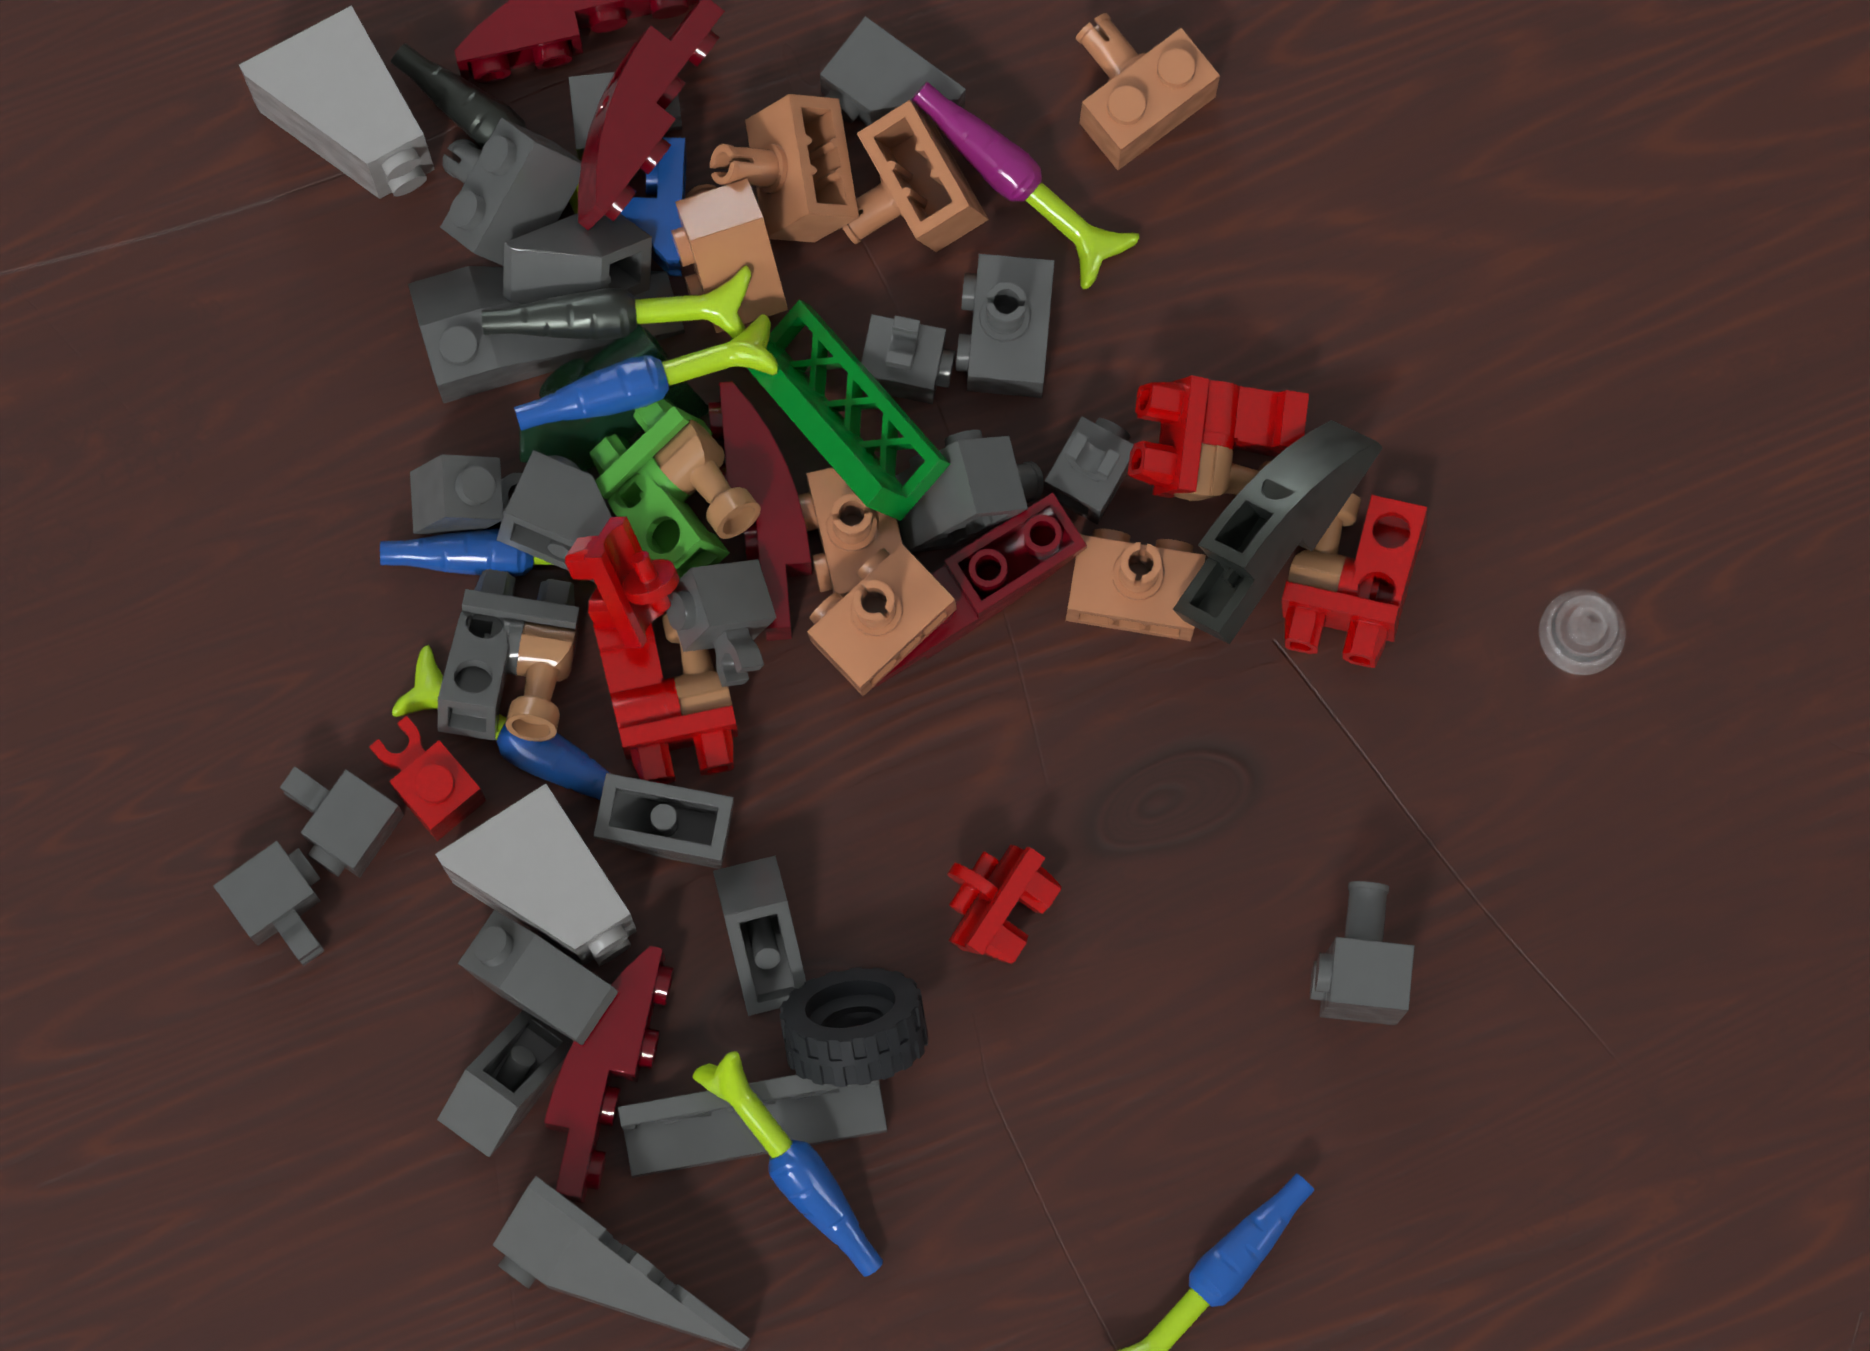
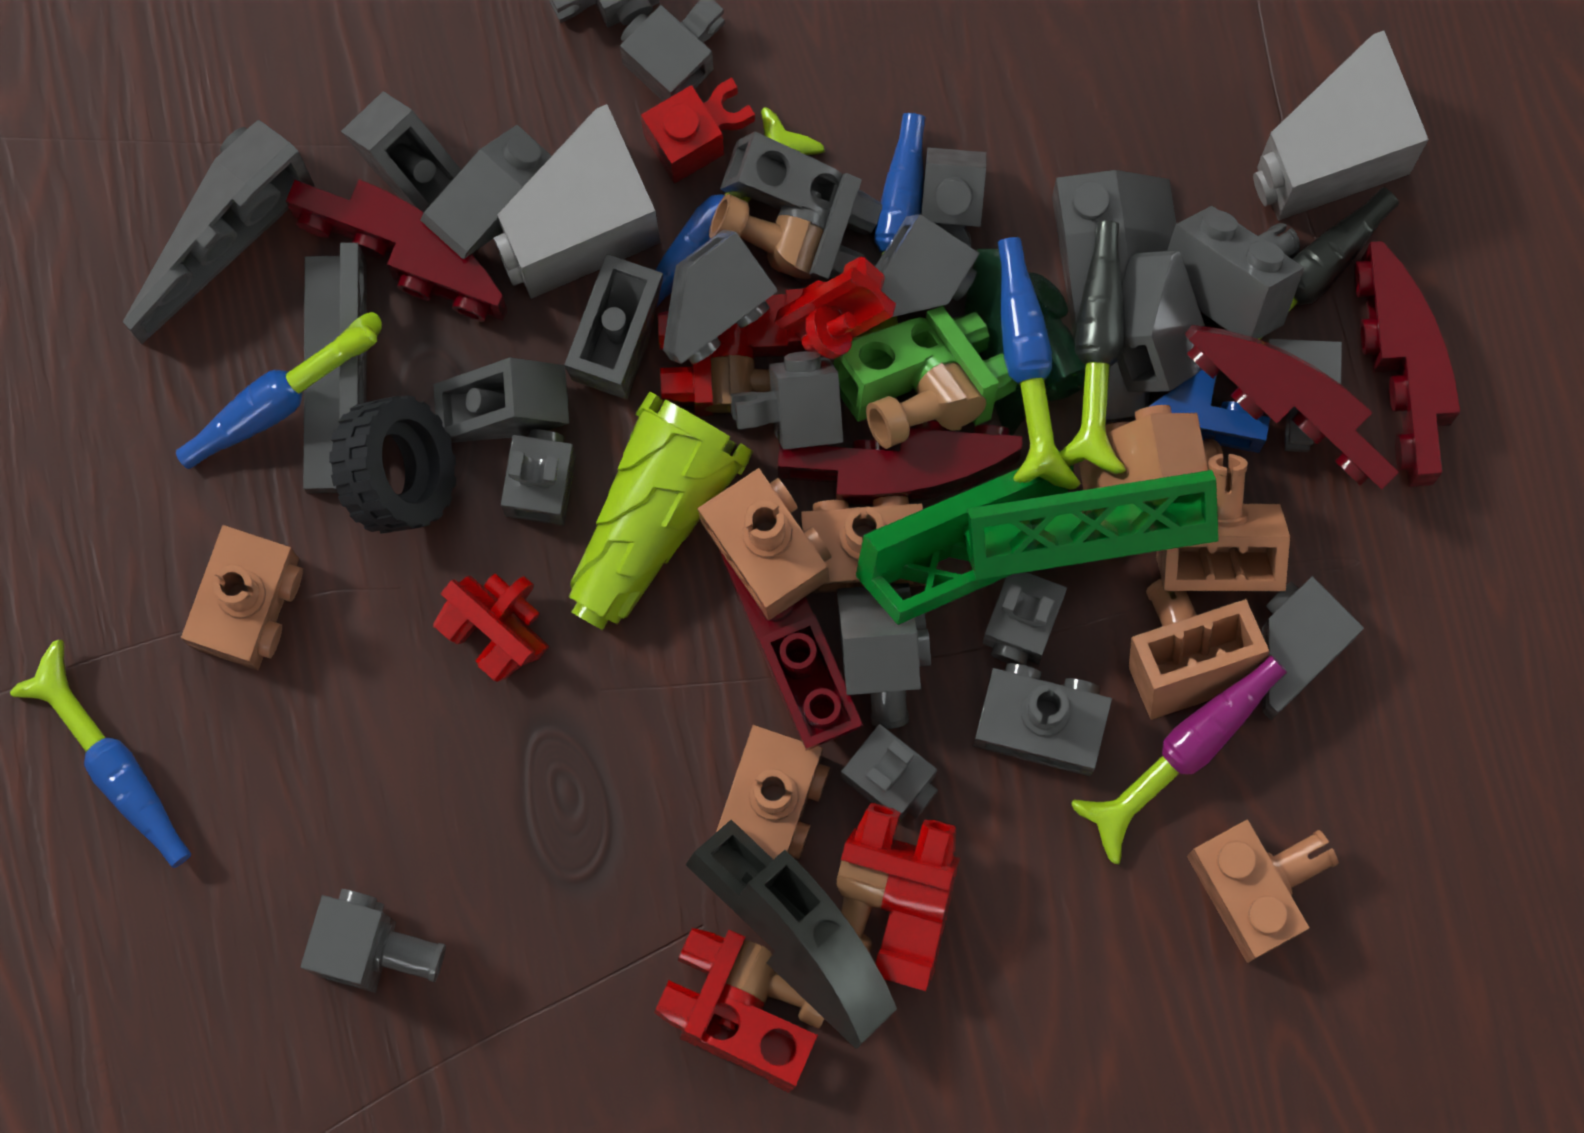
camera: 105 degrees right, 0 degrees up
(625, 715) = (711, 293): none -> dark grey slope
(817, 285) = (1092, 525): none -> green fence
(835, 880) = (539, 477): none -> dark grey brick
(840, 747) = (651, 506): none -> lime cone
(1018, 1168) = (242, 598): none -> nougat brick

